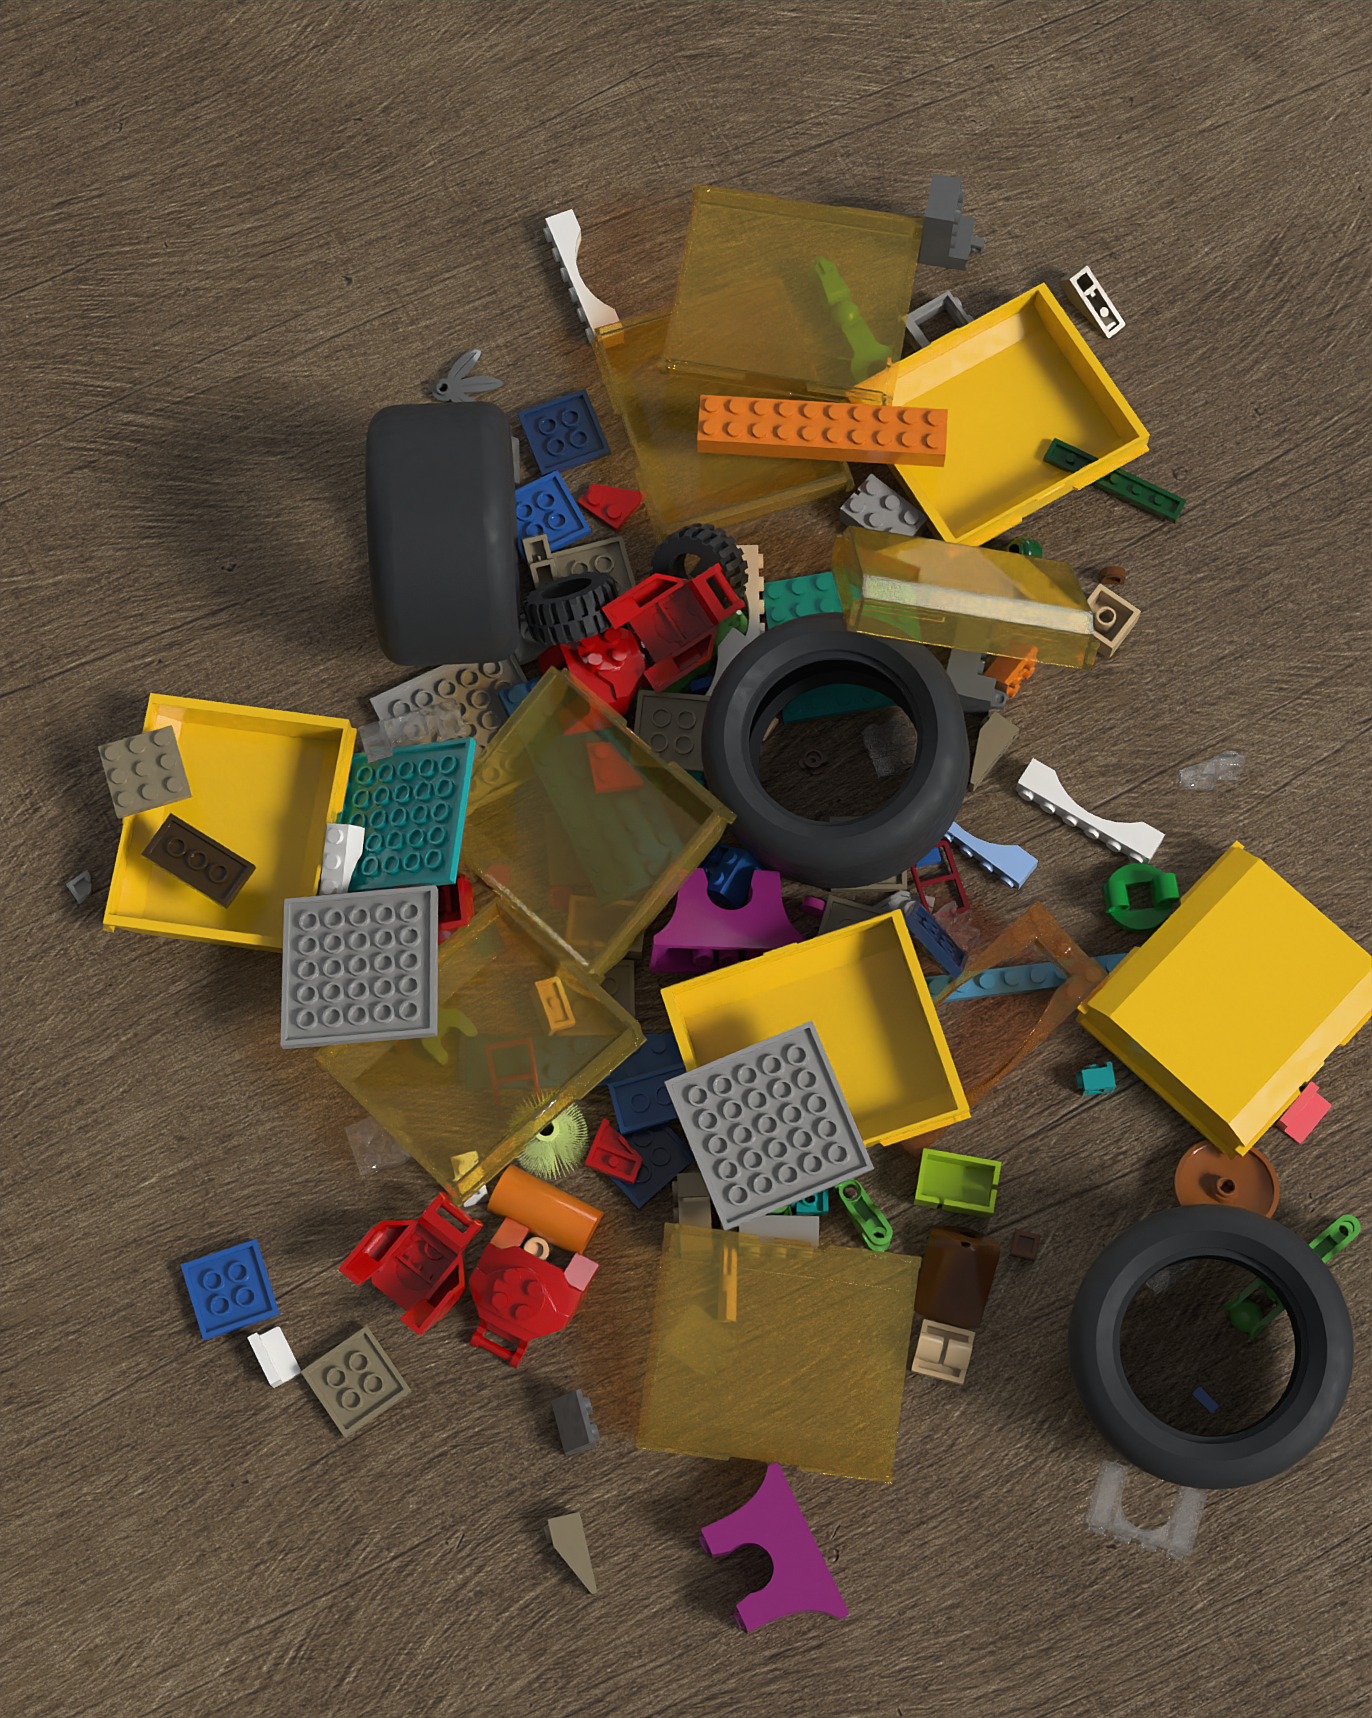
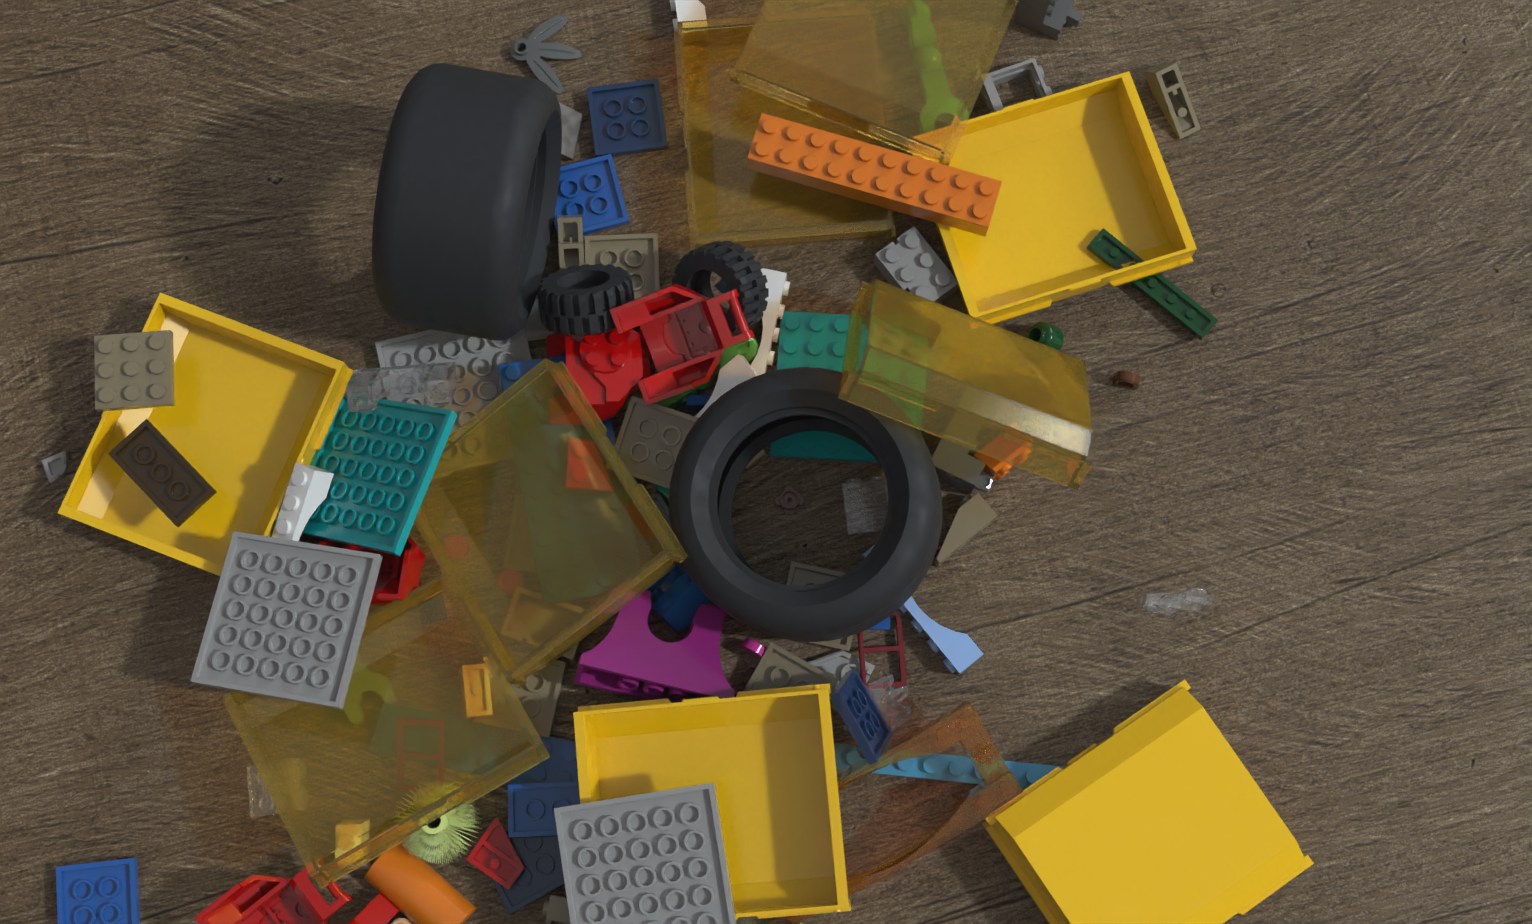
camera: 10 degrees right, 5 degrees up
(610, 504) = (655, 199): red wing -> none
(1096, 1079) = (988, 887): teal brick -> none
(1111, 619) = (1112, 424): tan brick -> none
(1134, 839) = (1084, 652): white arch -> none
(1162, 890) = (1099, 712): green piece -> none

